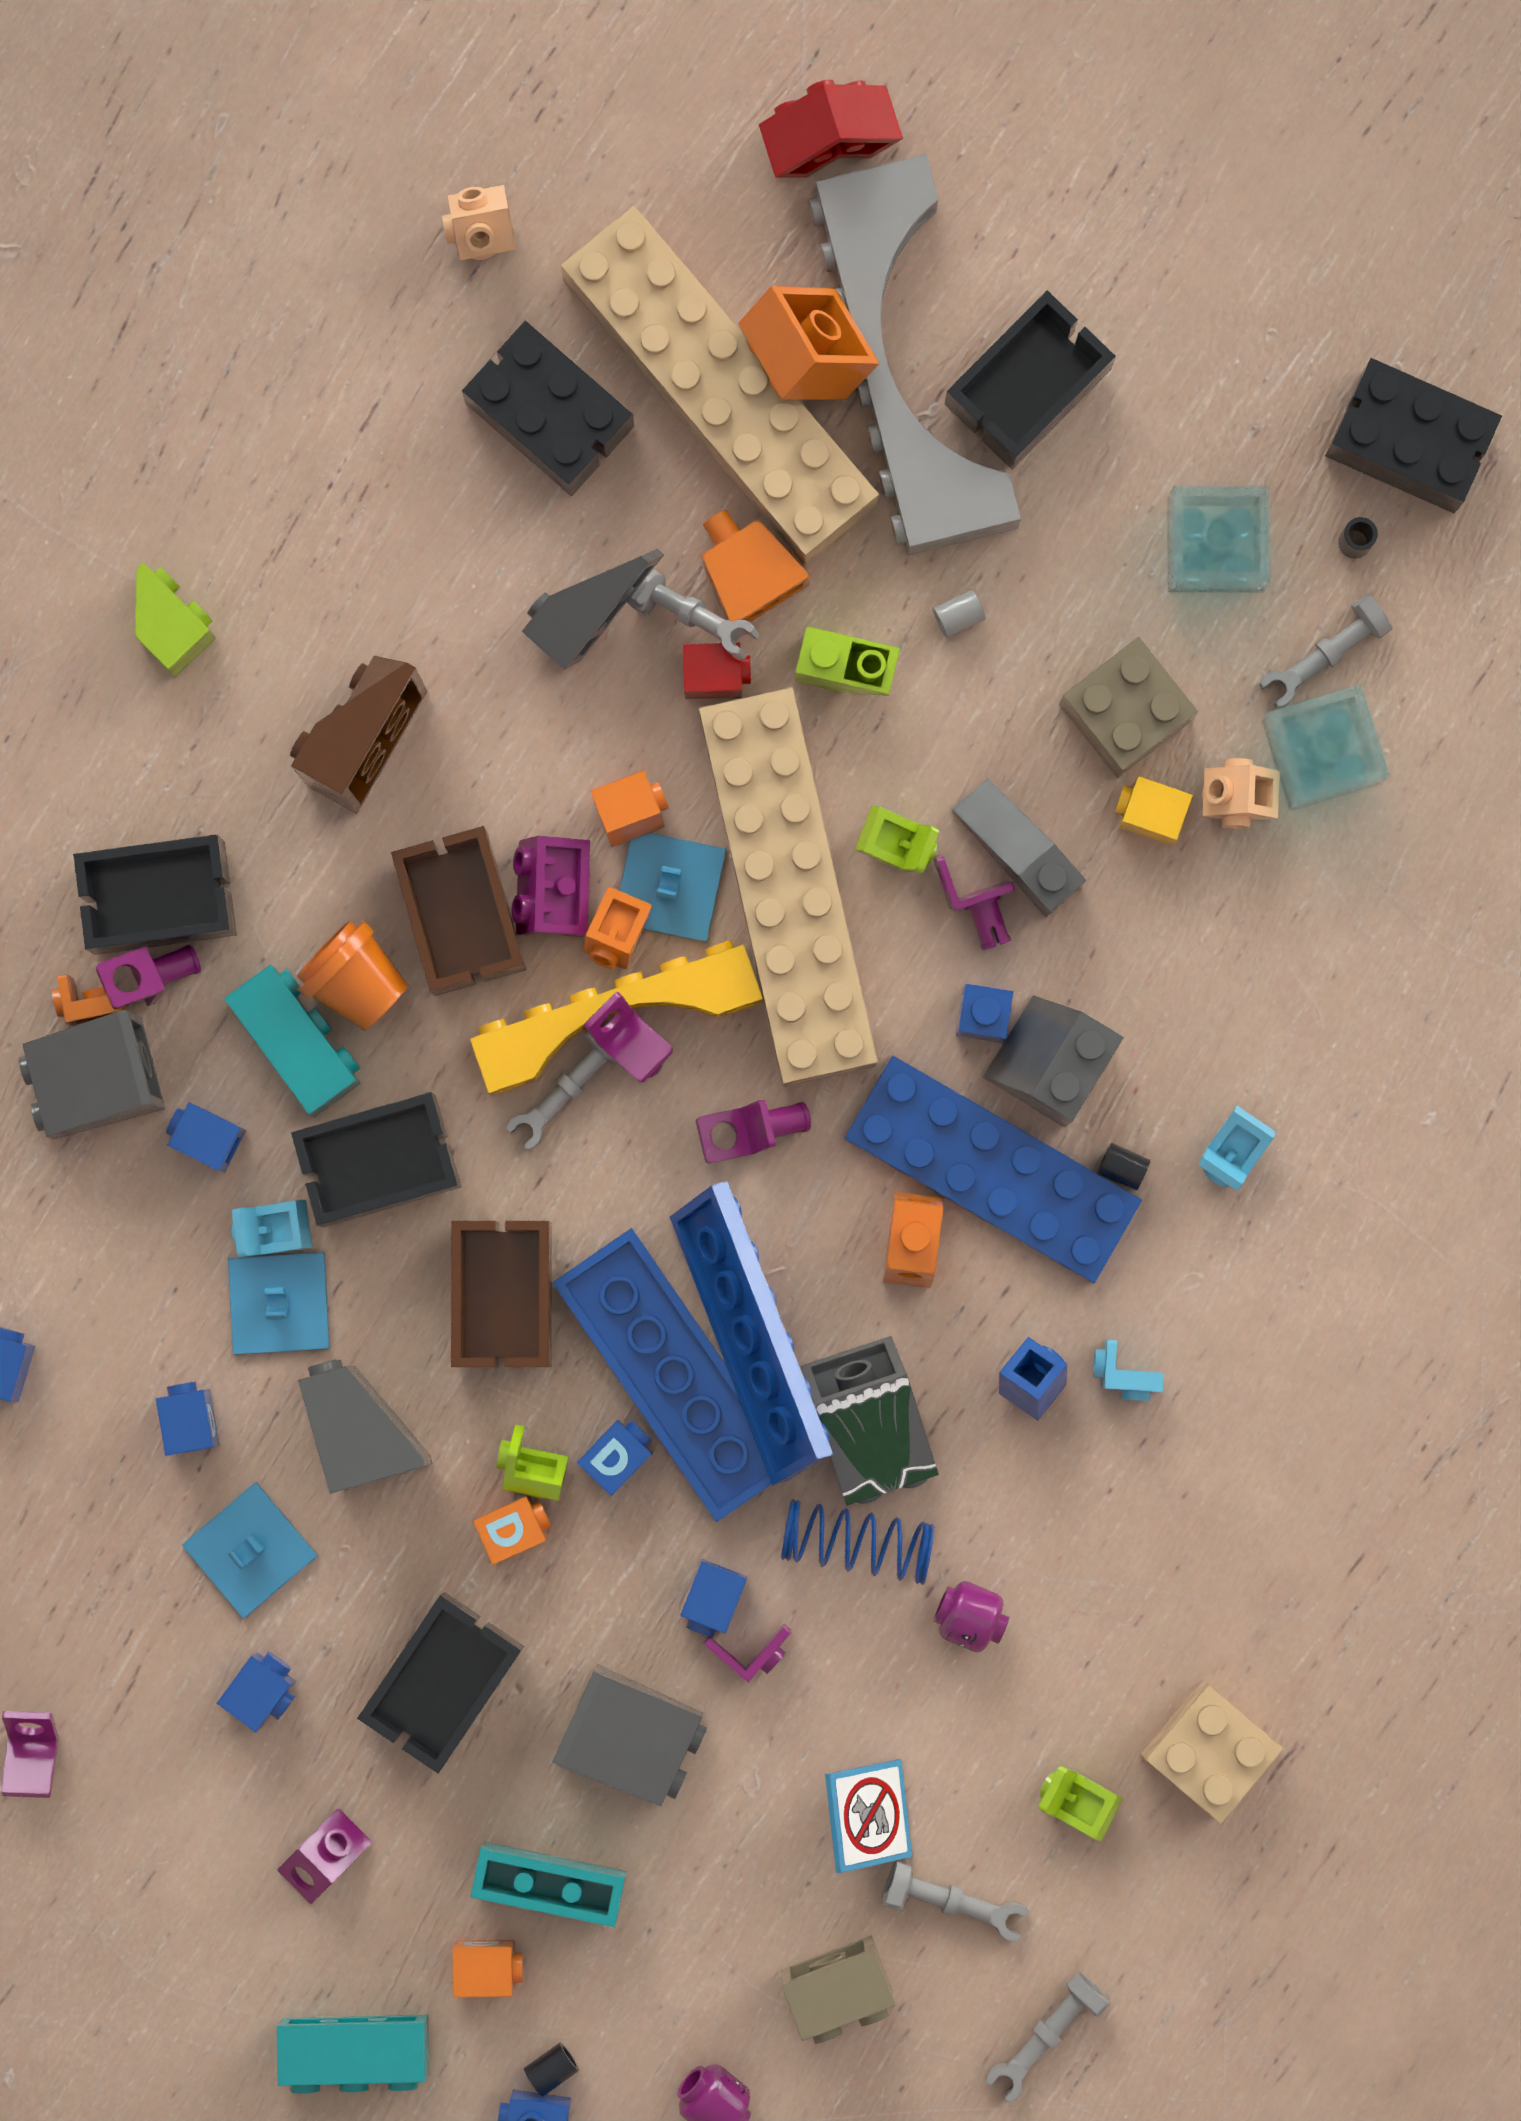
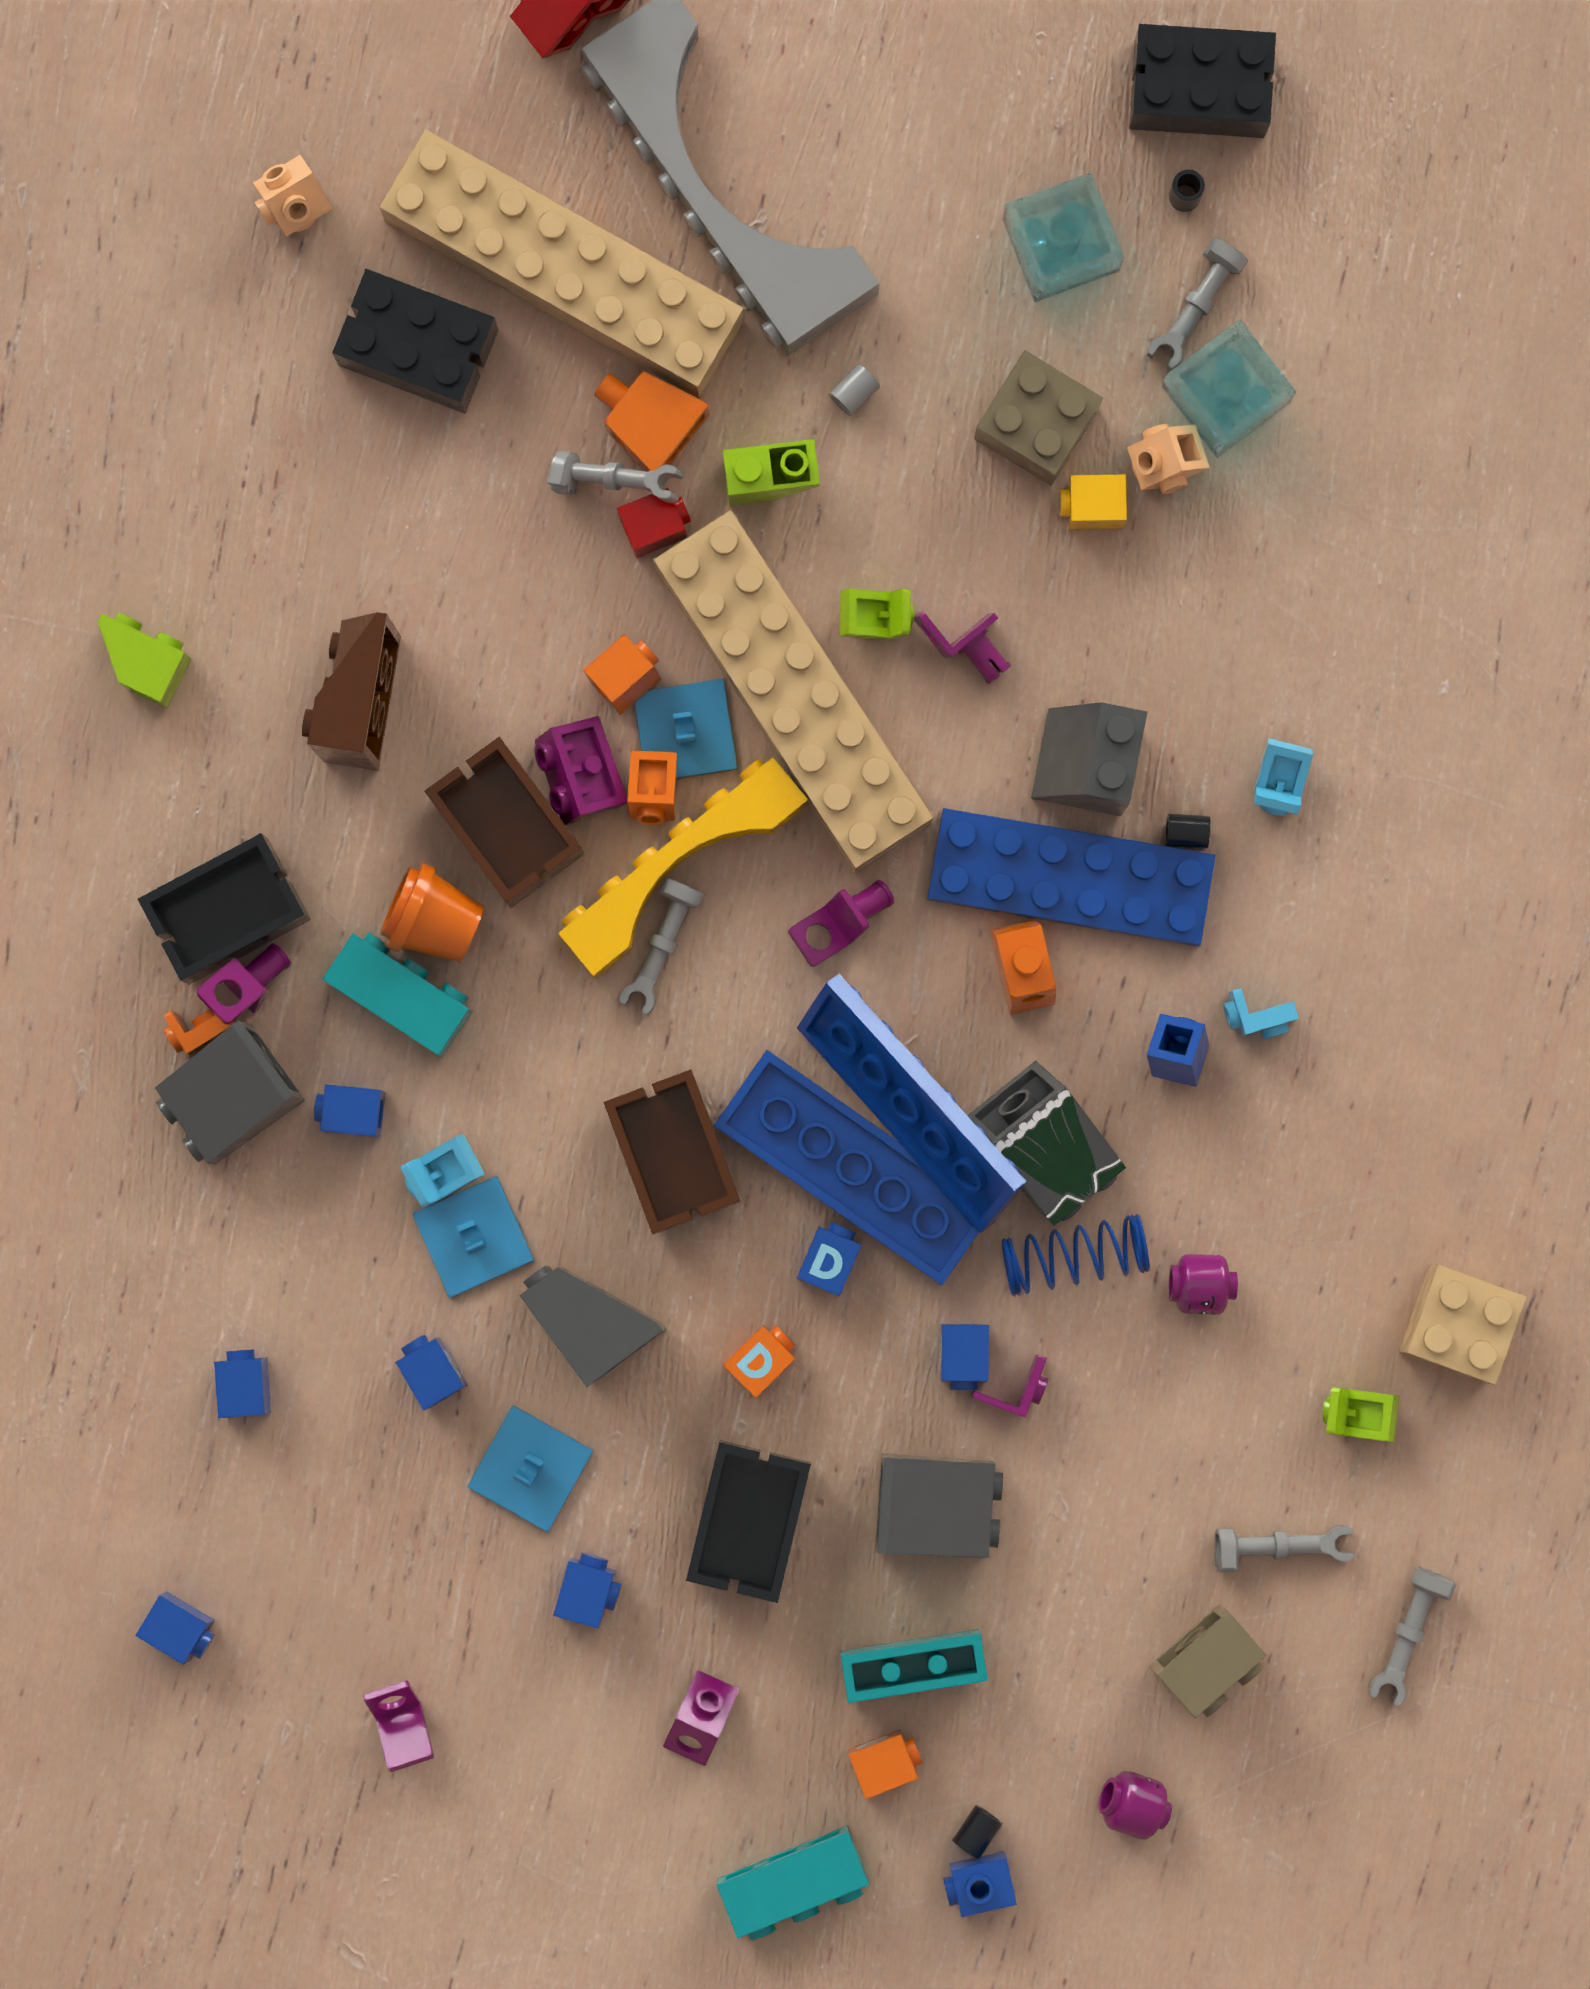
camera: 20 degrees left, 0 degrees up
(376, 1159) = (514, 1073): black piece -> none
(531, 1470) = (757, 1301): lime bracket -> none
(575, 617) = (511, 518): dark grey slope -> none
(628, 1039) = (701, 880): magenta bracket -> none
(808, 343) = (629, 195): orange brick -> none
(868, 1815) = (1177, 1496): piece -> none
(984, 1013) = (1011, 739): blue brick -> none
(1019, 847) = (988, 580): slope -> none
(1029, 380) = (839, 156): black piece -> none

